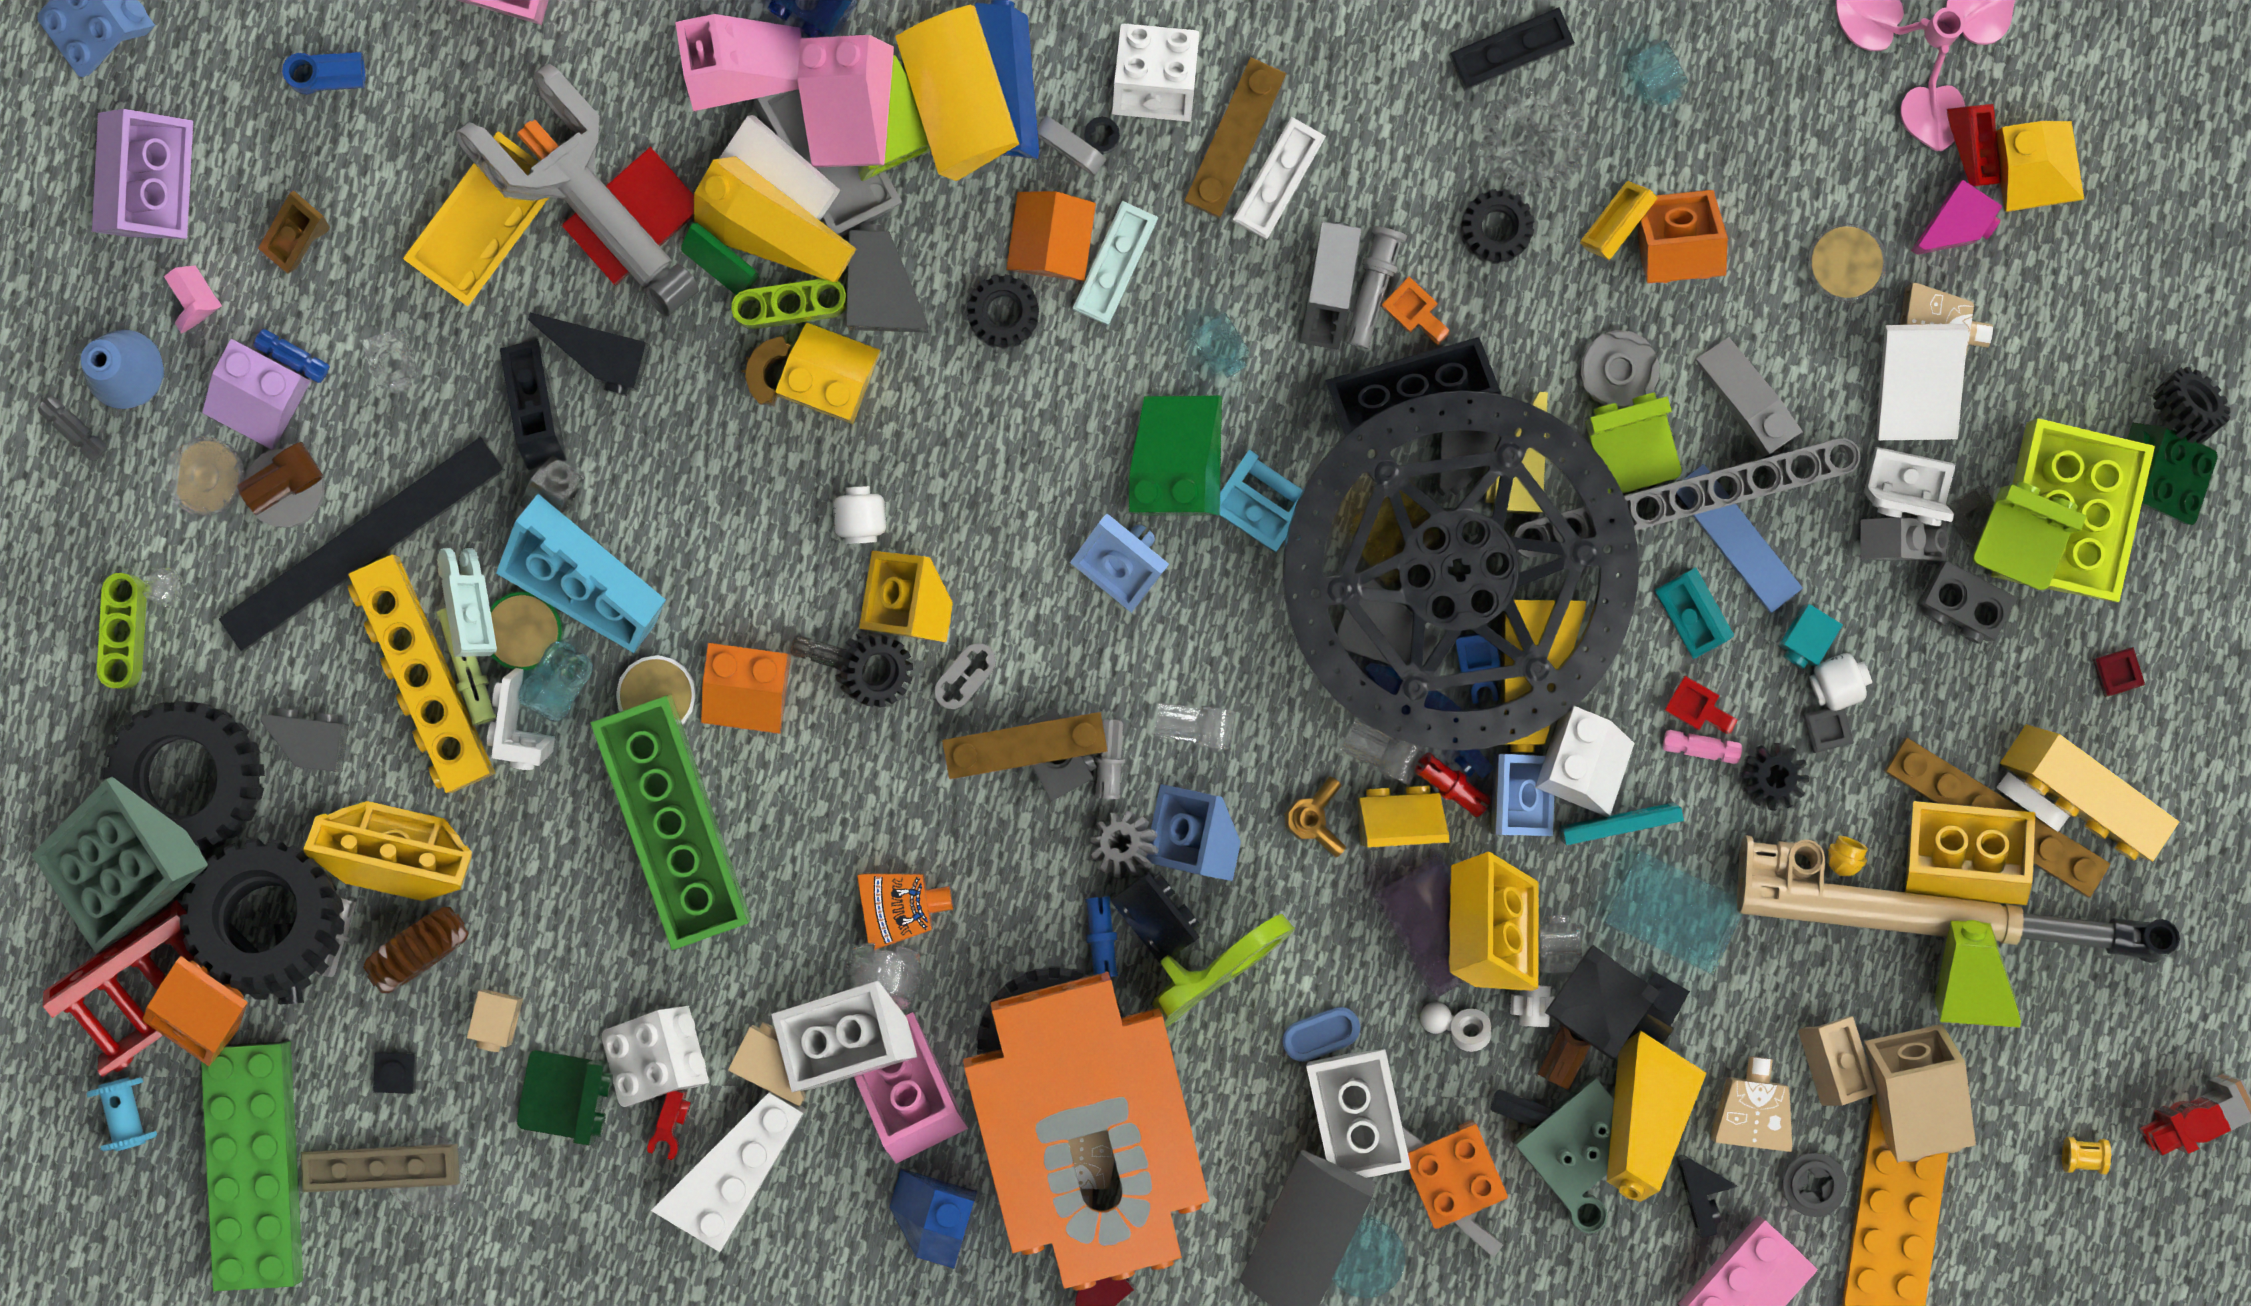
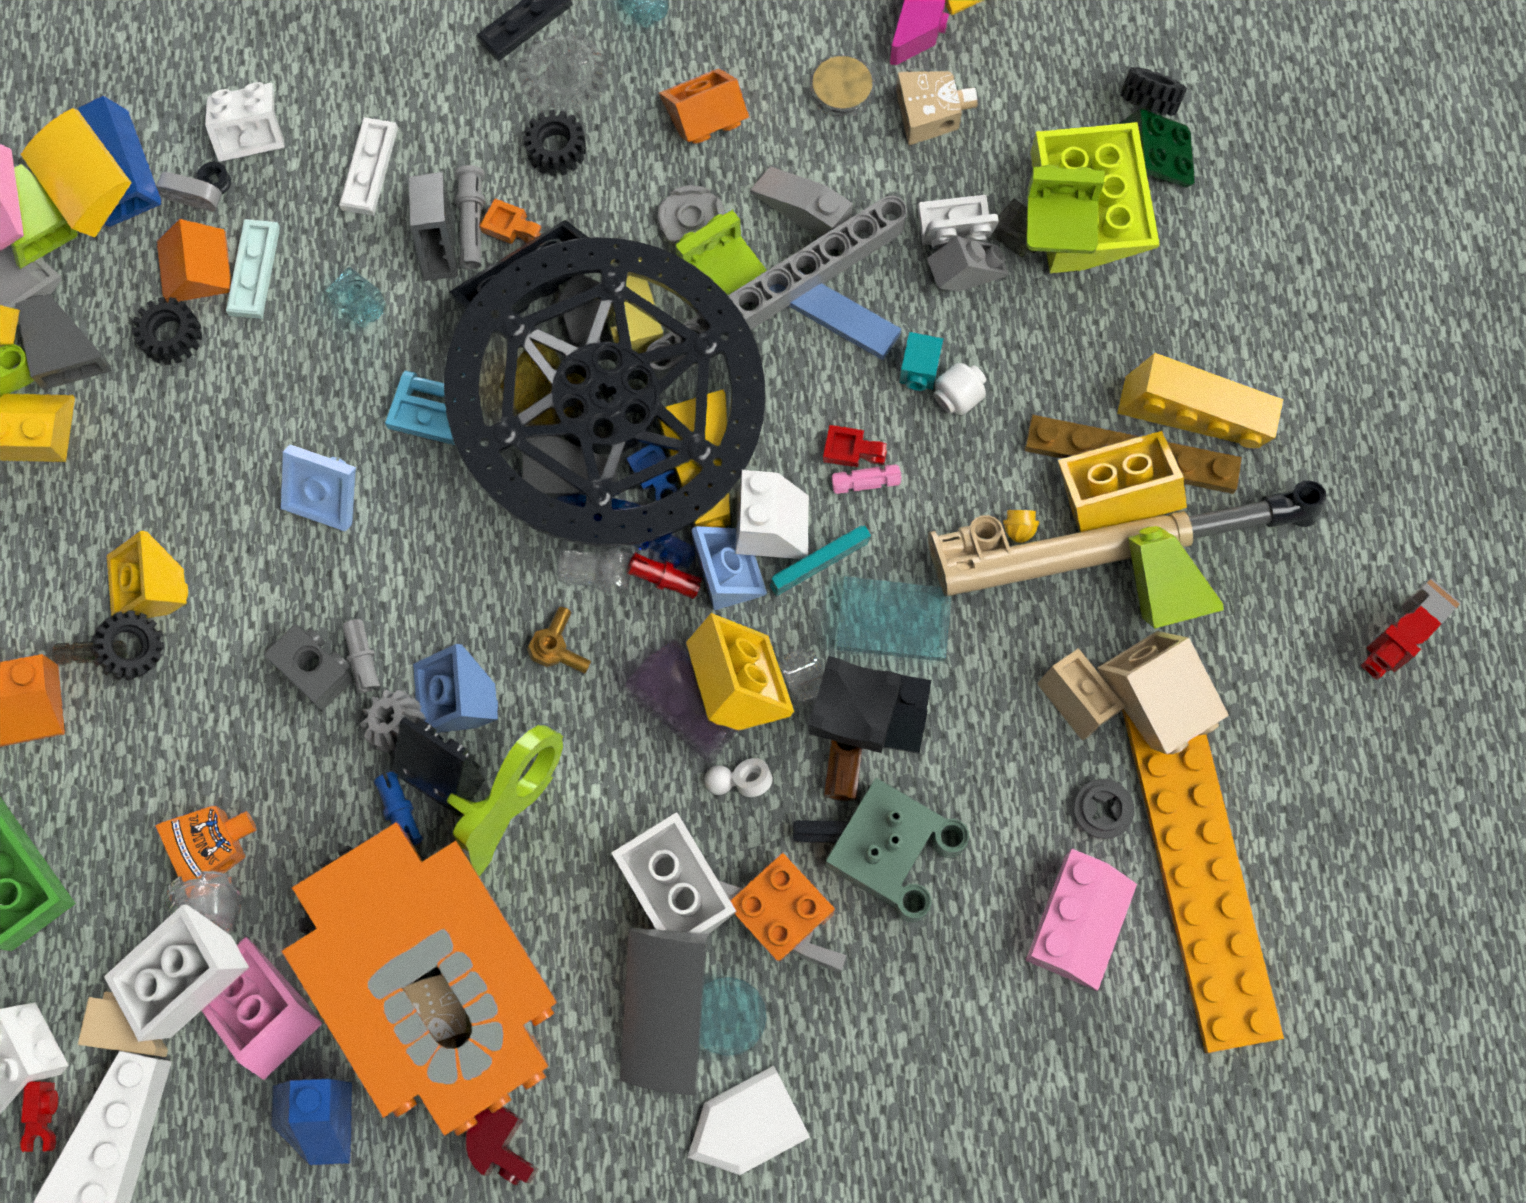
camera: 15 degrees left, 15 degrees down
(859, 515) = (85, 527): white head -> none
(957, 670) = (208, 625): light grey beam -> none
(1024, 745) = (274, 661): pearl gold plate -> none
(1177, 457) = (345, 396): green slope -> none
(1204, 726) = (437, 600): clear piece -> none
(1235, 137) = (323, 148): pearl gold plate -> none
(1321, 1034) = (620, 827): medium blue tile -> none
(1401, 818) = (629, 618): yellow slope -> none
(1532, 1006) = (797, 737): white gear -> none
(1618, 220) = (649, 107): yellow tile -> none
(1649, 1114) = (933, 789): yellow slope -> none
(1694, 613) = (820, 378): teal slope -> none
(1699, 1183) = (1000, 840): black slope -> none
(1754, 1110) = (1026, 761): tan torso -> none
(1762, 771) = (934, 467): black gear -> none
(1828, 729) = (965, 431): dark grey tile -> none
(1921, 382) = (934, 141): white tile -> none
(1969, 593) = (1038, 285): dark grey brick -> none
(2033, 801) = (1143, 423): white beam -> none
(2086, 1155) = (1326, 701): yellow bush -> none
(2118, 672) = (1183, 310): dark red tile -> none

